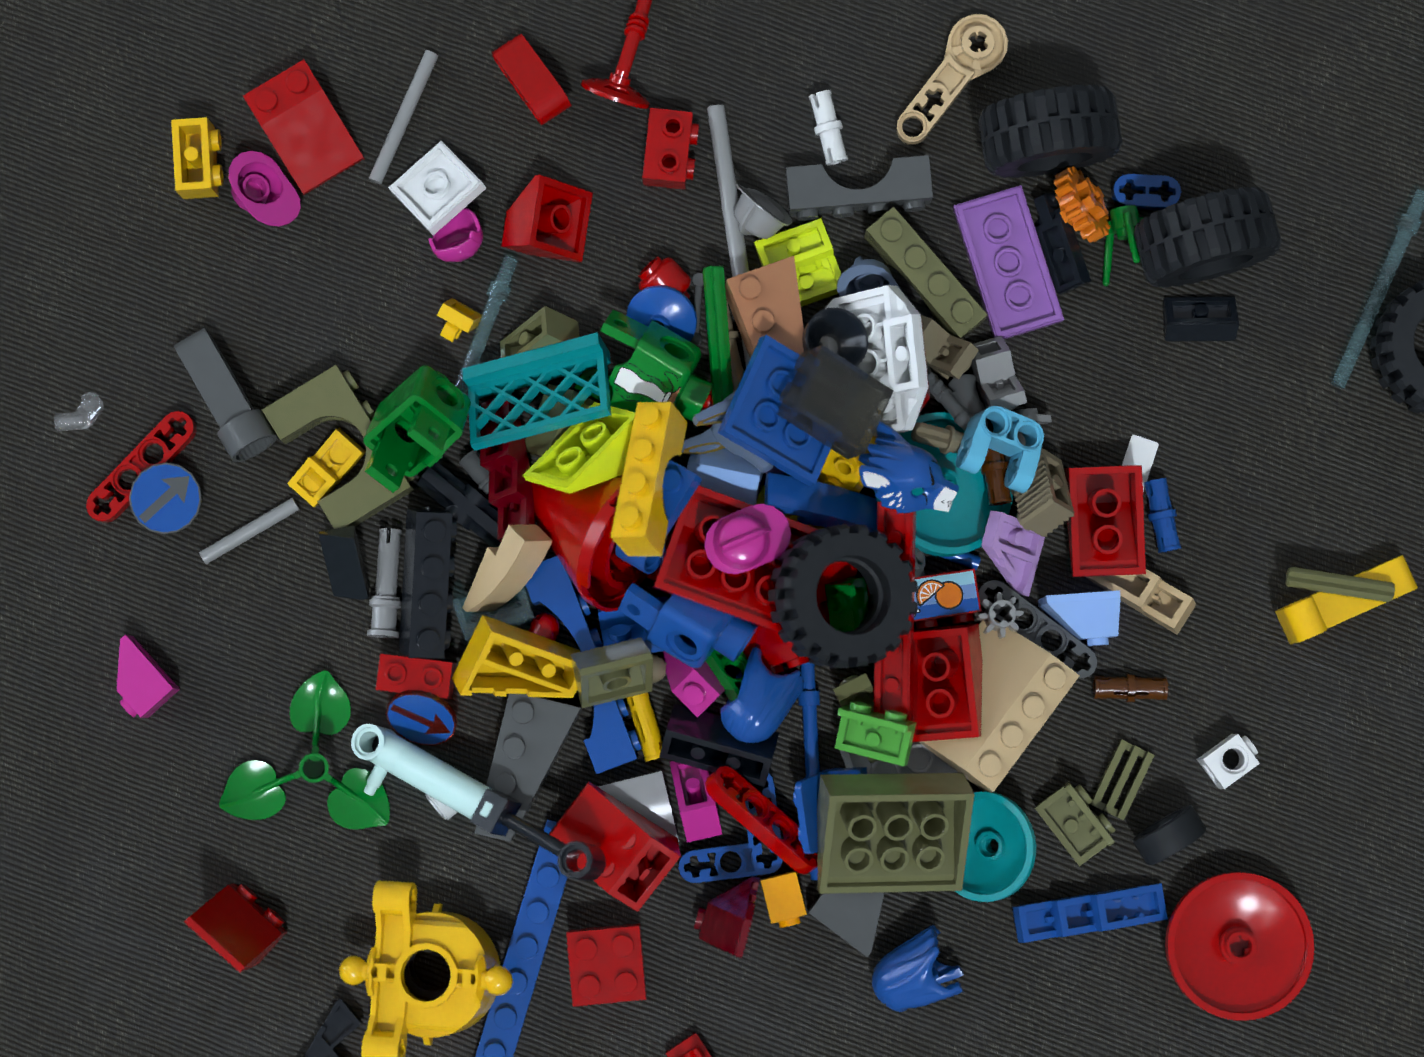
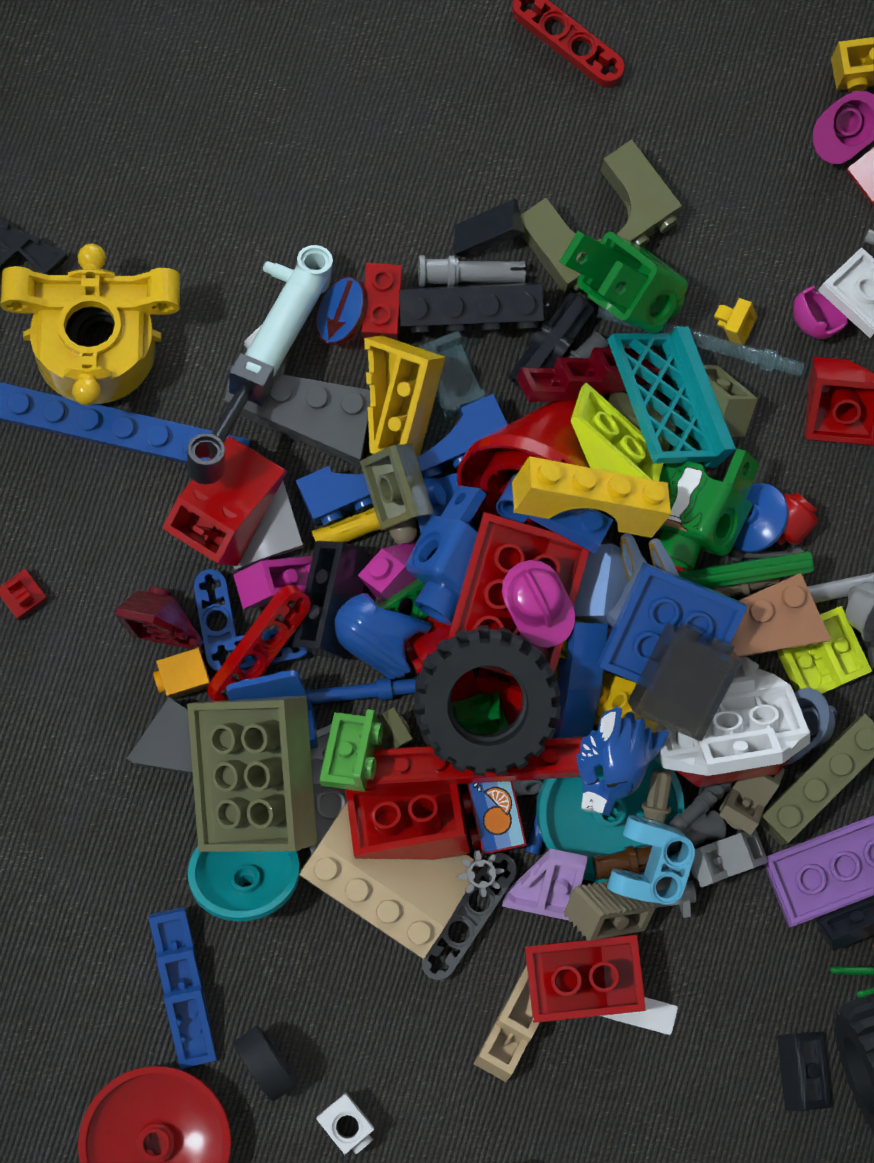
camera: 80 degrees right, 5 degrees down
(141, 680) = (363, 50): dark pink slope -> none
(165, 498) = (538, 59): blue piece -> none
(238, 926) = (128, 149): red slope -> none
(242, 428) = (617, 121): dark grey beam -> none
(249, 531) = (513, 141): light grey bar -> none
(316, 707) = (264, 163): green plant -> none
(327, 467) = (579, 208): yellow slope -> none
(507, 567) = (493, 377): tan slope -> none
(545, 626) = (439, 425): red hinge -> none
(606, 964) = (109, 504): red brick -> none
(843, 328) = (763, 691): black piece -> none
(913, 975) = (112, 804): blue hair -> none
(1075, 823) = (273, 966): olive bracket -> none
(1085, 615) = (486, 963): light blue slope -> none
(1130, 688) = (415, 1017): reddish brown pin -> none
(1135, 784) = (291, 1001): olive tile -> none
(1162, 515) = (596, 1041): blue pin -> none

